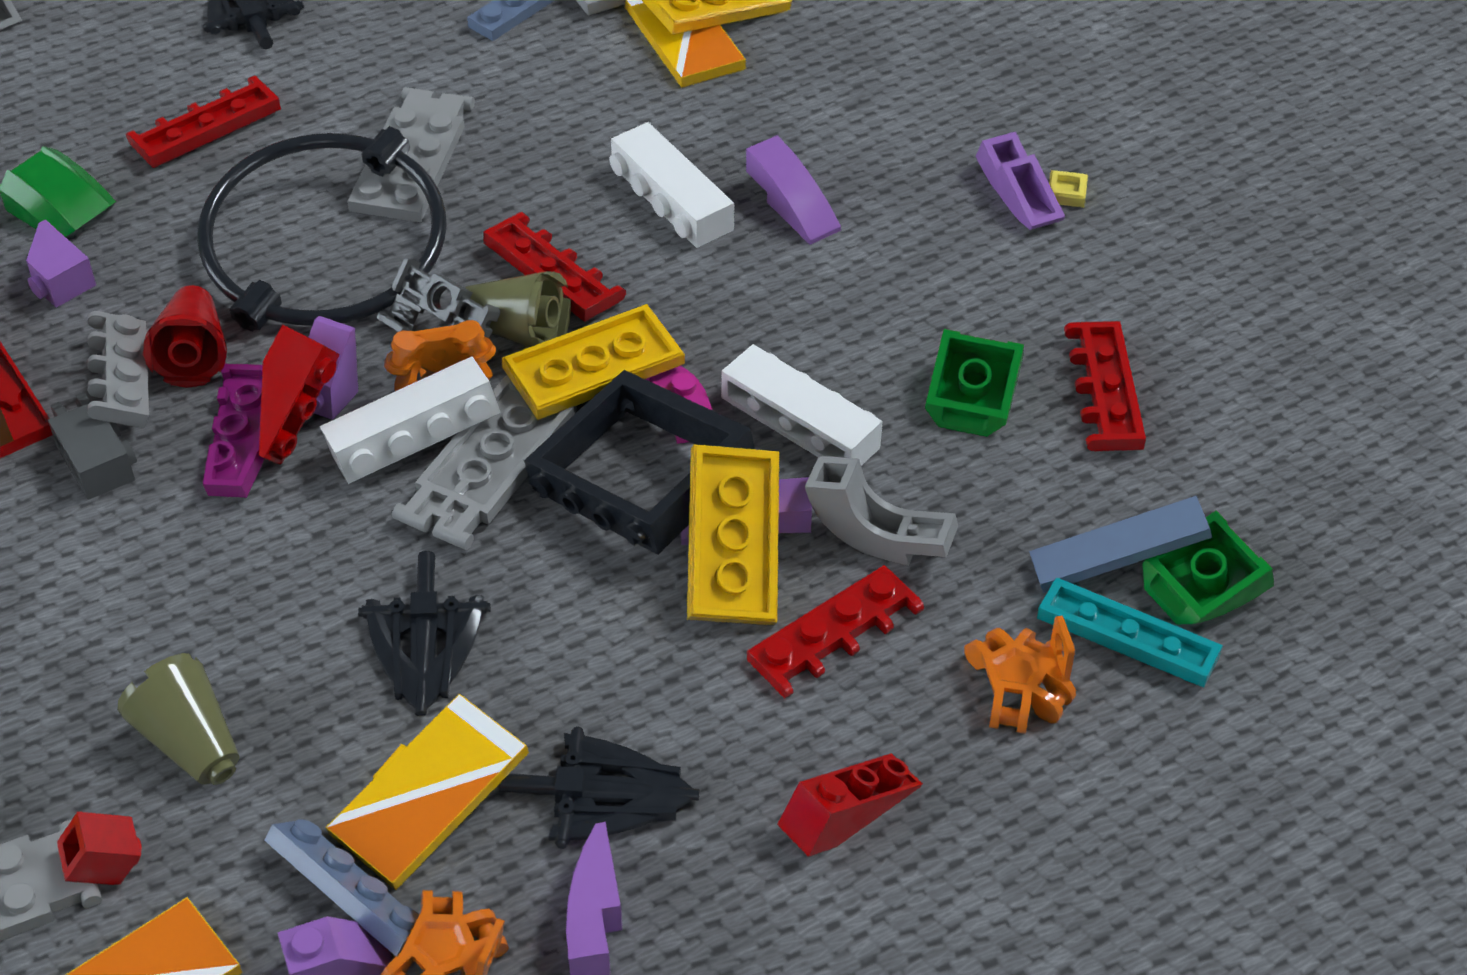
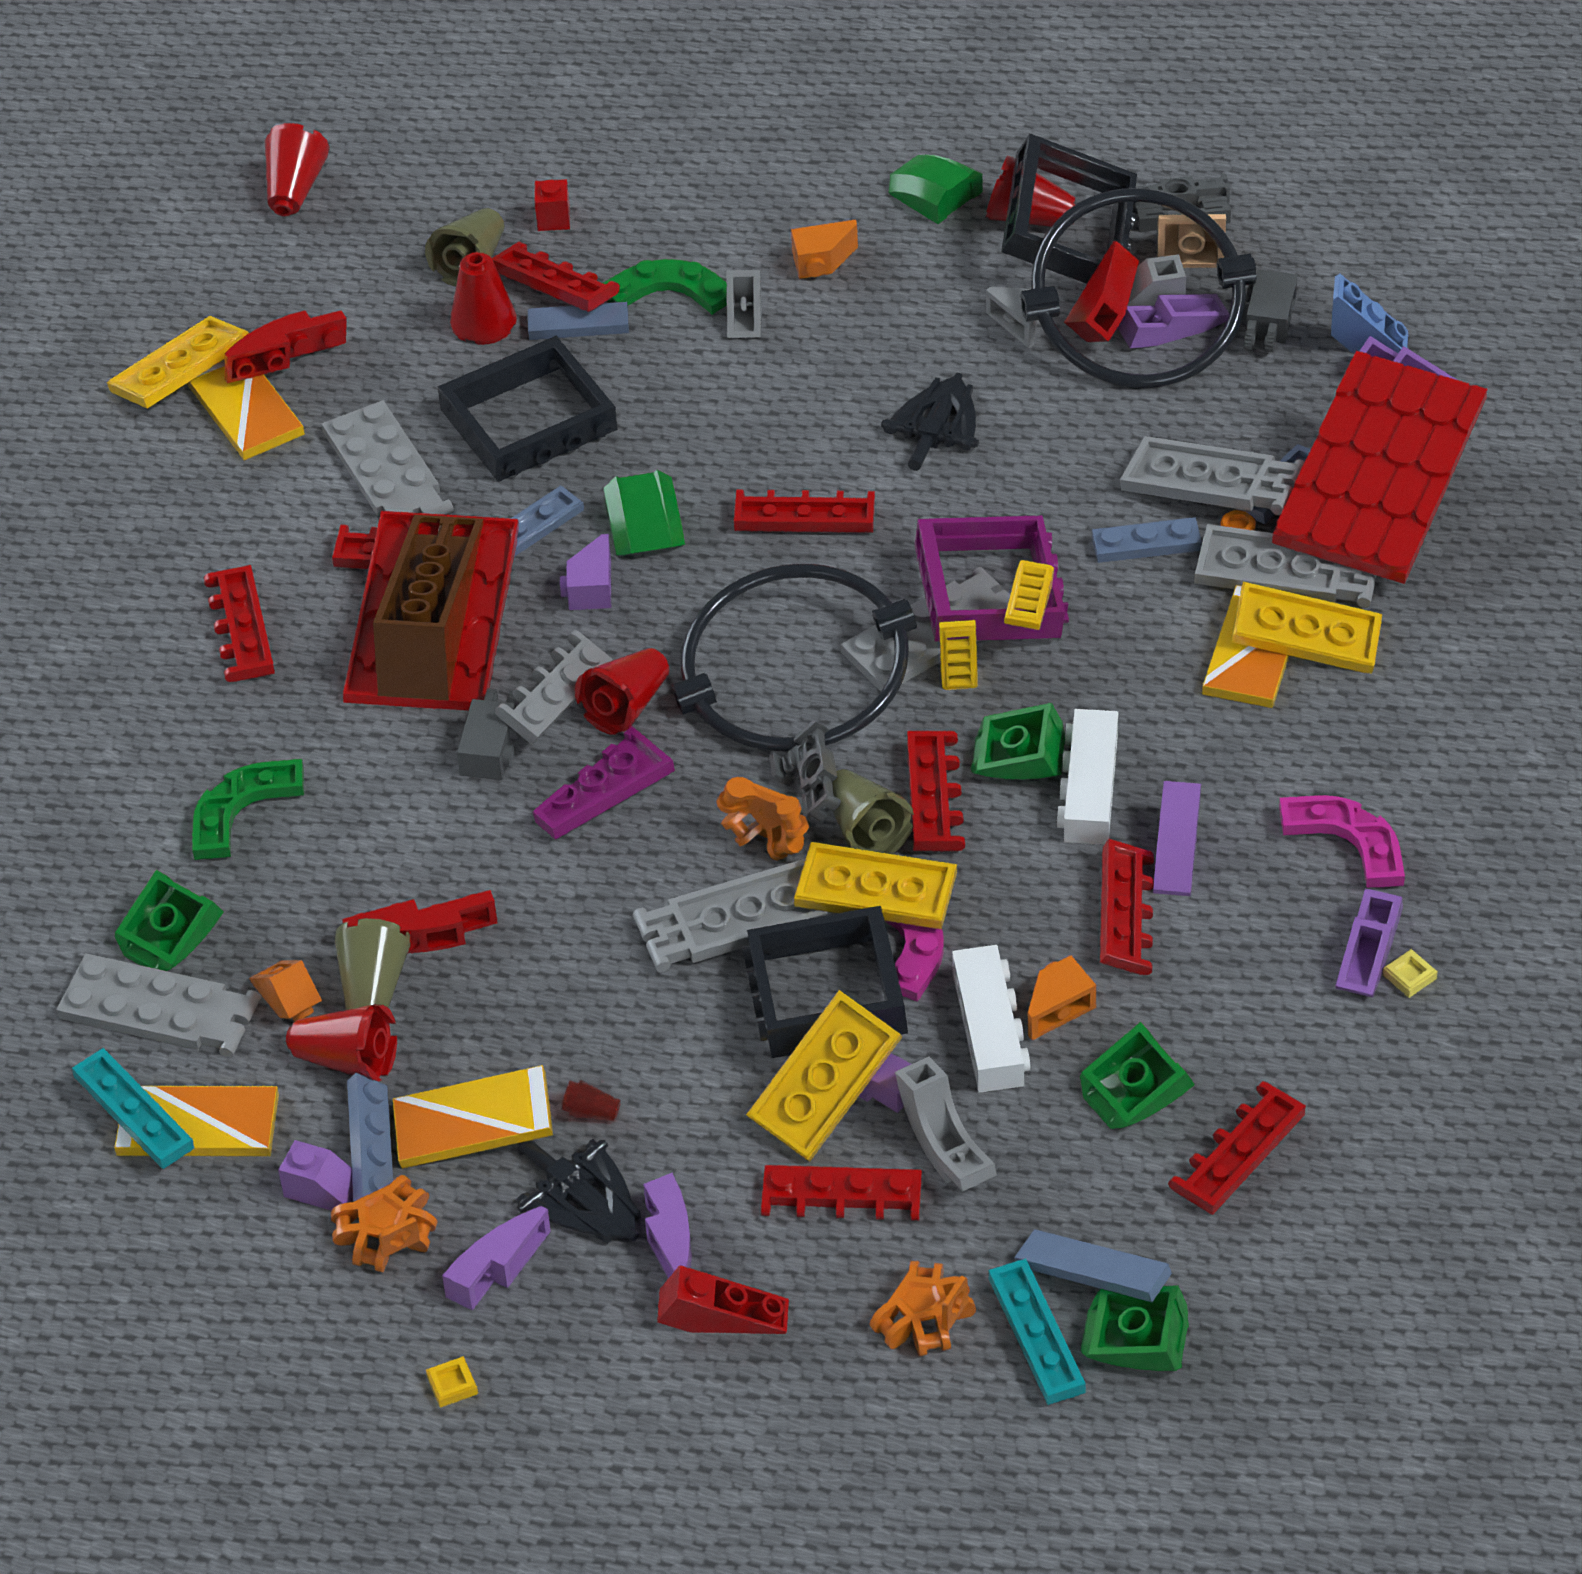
camera: 45 degrees right, 0 degrees up
(99, 848) = (251, 1020): red brick -> none
(105, 787) = (287, 989): none -> orange slope
(208, 636) = (438, 925): none -> red slope
(222, 804) = (347, 1041): none -> red cone
(290, 385) = (639, 773): red slope -> none
(344, 383) = (684, 777): medium lavender slope -> none
(359, 84) = (987, 534): none -> magenta window
(410, 419) = (705, 850): white brick -> none
(423, 676) = (553, 1041): black bar -> none
(469, 164) = (958, 656): none -> yellow slope
(488, 65) = (1030, 593): none -> yellow slope
(525, 702) = (589, 1102): none -> clear red cone
(585, 193) = (1020, 744): none -> green slope
(731, 763) = (668, 1224): none -> medium lavender slope
(808, 264) = (1123, 907): none -> red hinge
(836, 354) = (1059, 996): none -> orange slope
(931, 110) = (1346, 819): none -> dark pink plate

